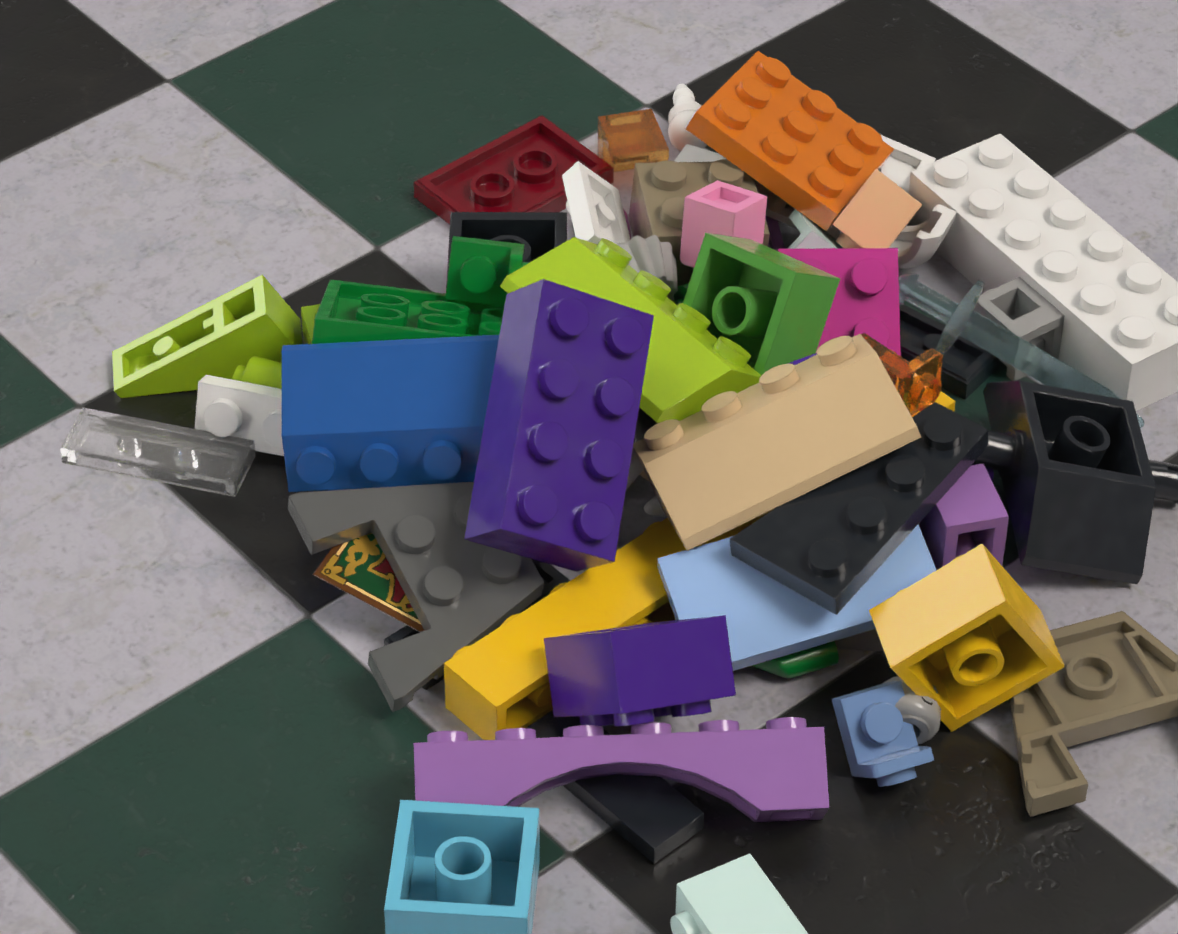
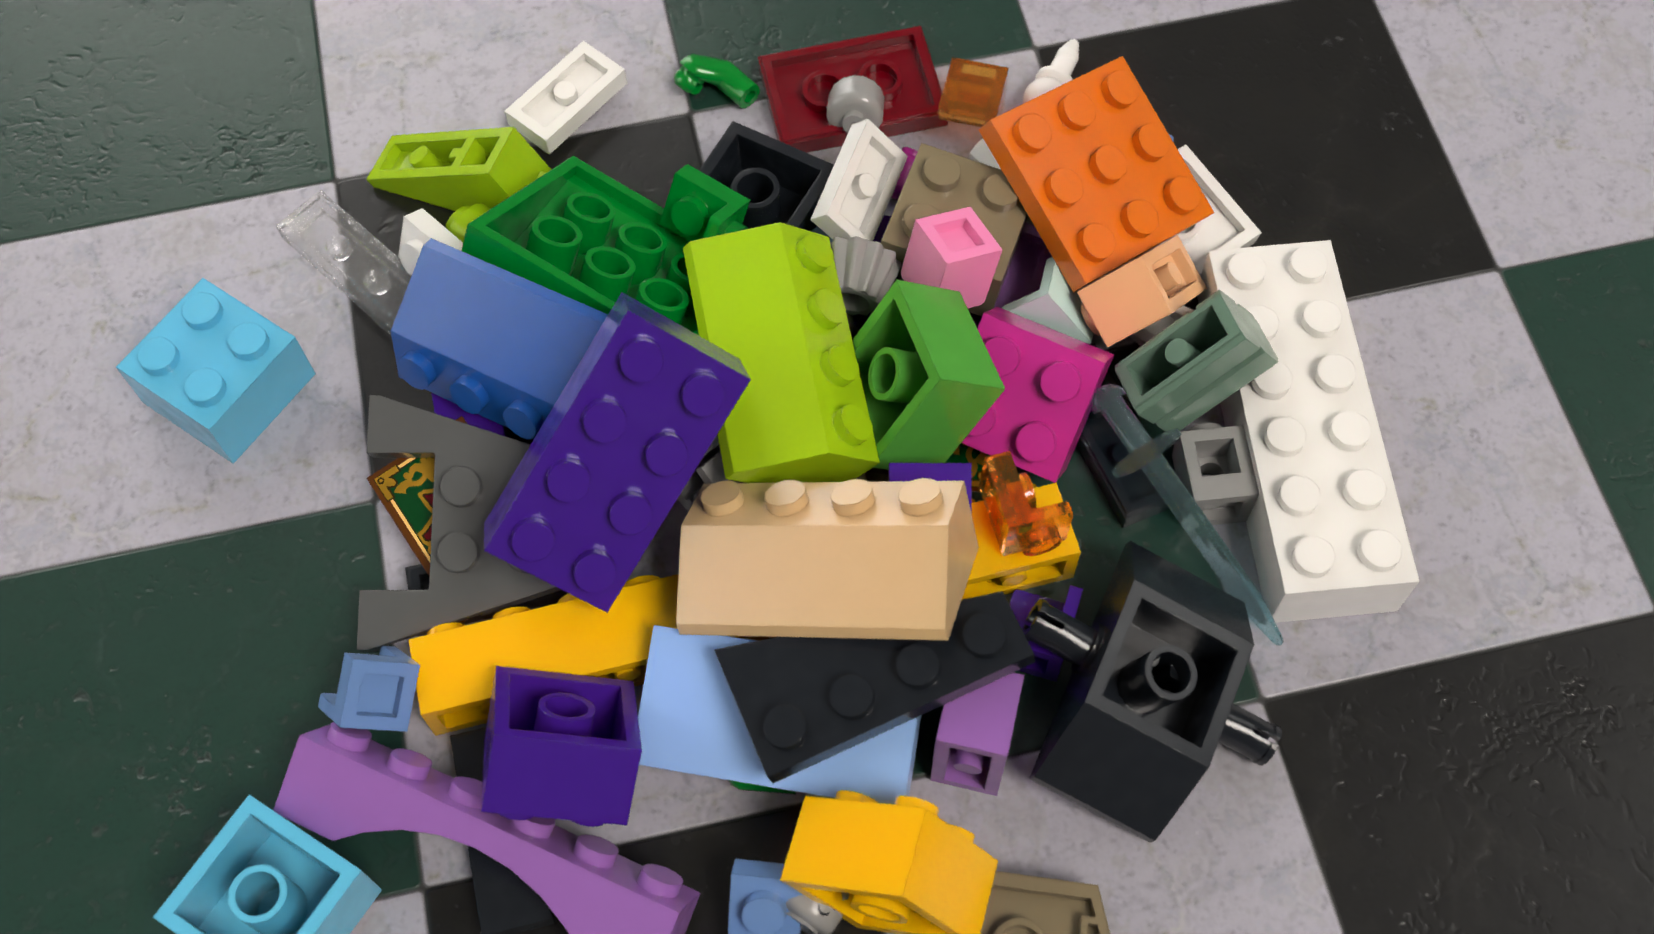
camera: 30 degrees right, 20 degrees up
(98, 561) = (217, 369): none -> medium azure brick
(265, 249) = (566, 97): none -> white plate
(387, 206) = (718, 72): none -> green arm
(445, 700) = (373, 691): none -> medium blue panel
(531, 183) = (855, 100): none -> light grey piece
(962, 233) = (1195, 363): none -> sand green brick

